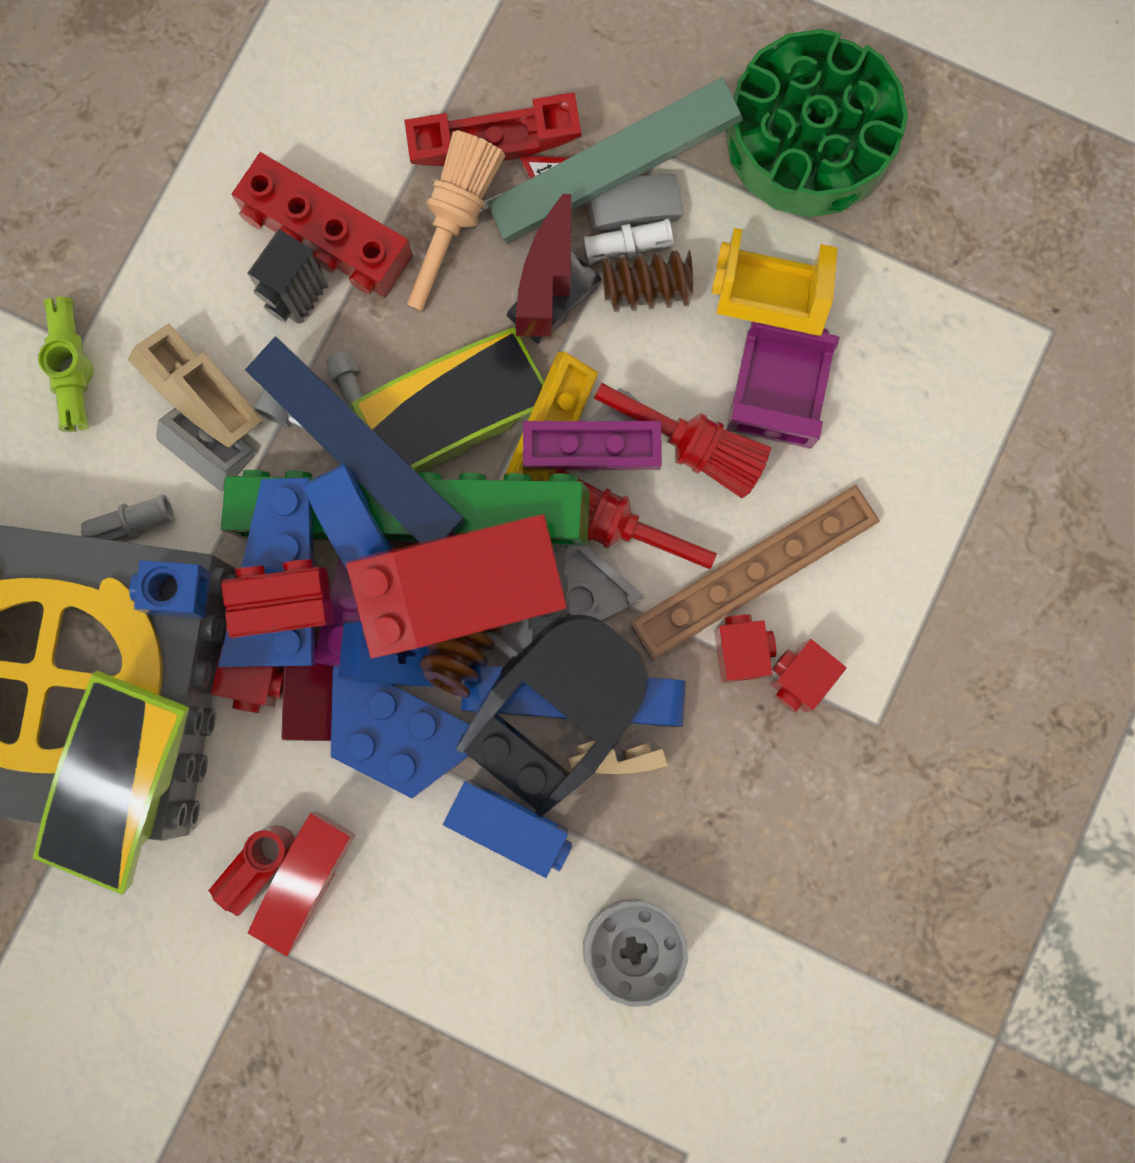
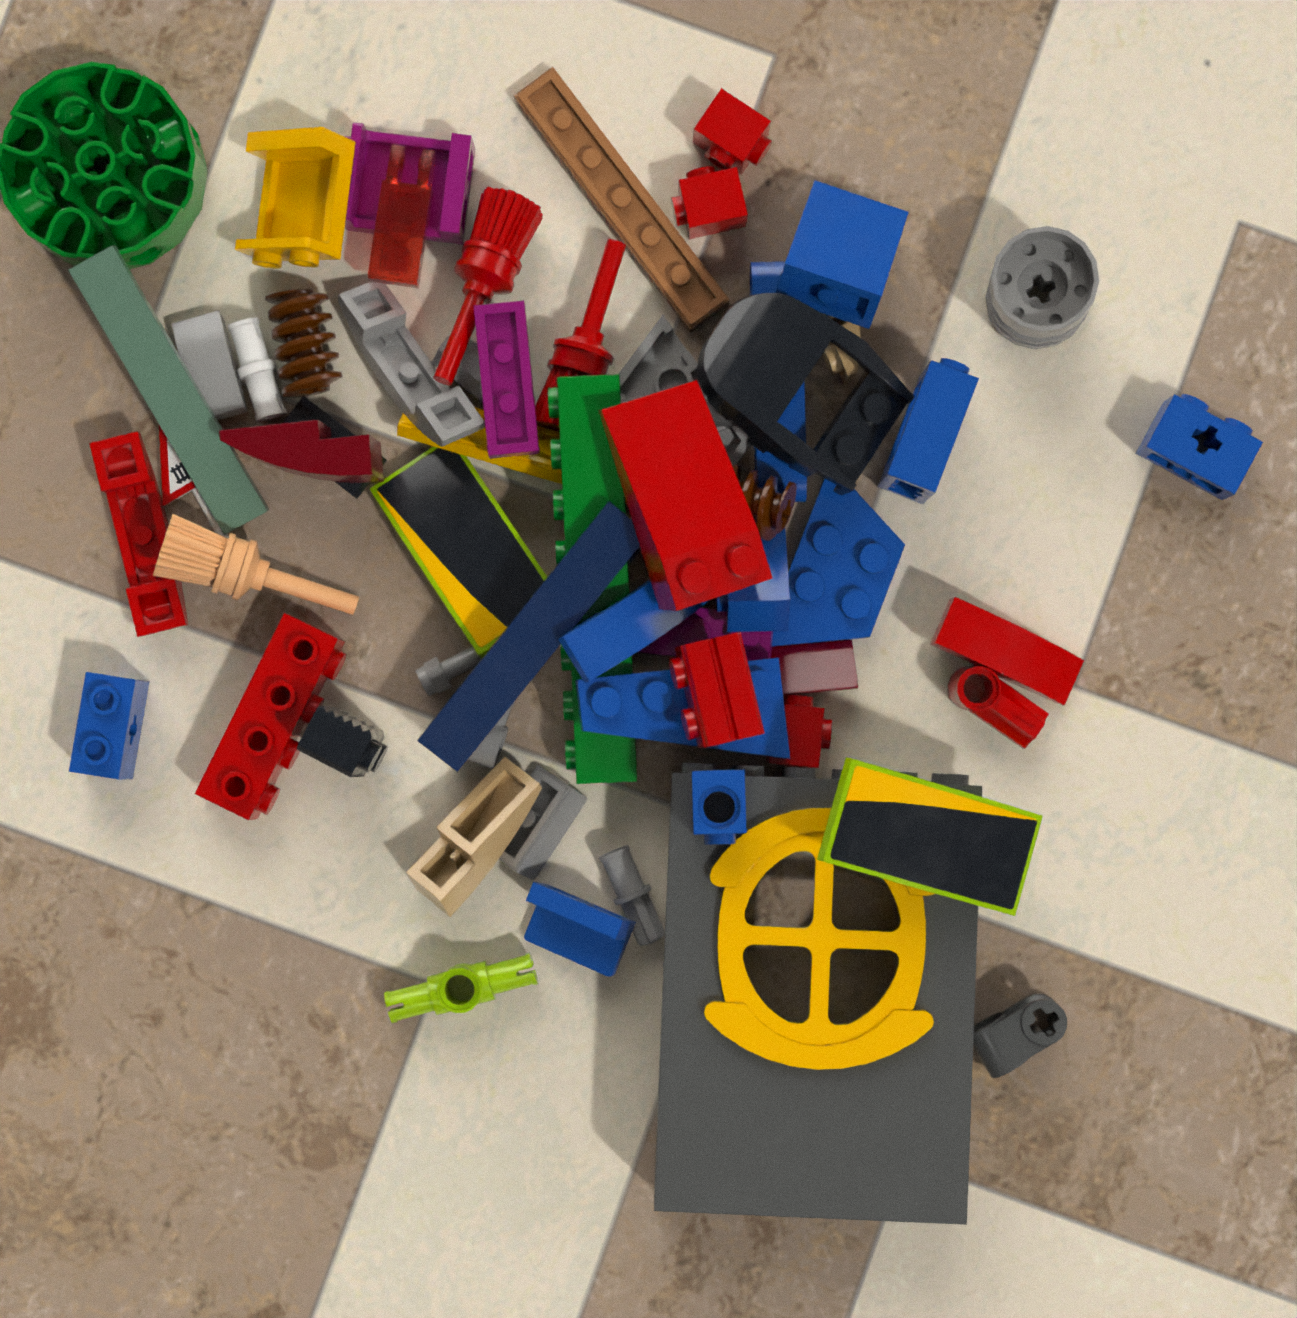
camera: 90 degrees left, 5 degrees up
(104, 469) = (577, 929): none -> blue panel
(330, 91) = (109, 726): none -> blue brick
(454, 1114) = (1173, 447): none -> blue brick
(617, 365) = (404, 368): none -> light grey slope
(682, 763) = (842, 254): none -> blue panel
(748, 373) = (402, 222): none -> clear red hinge

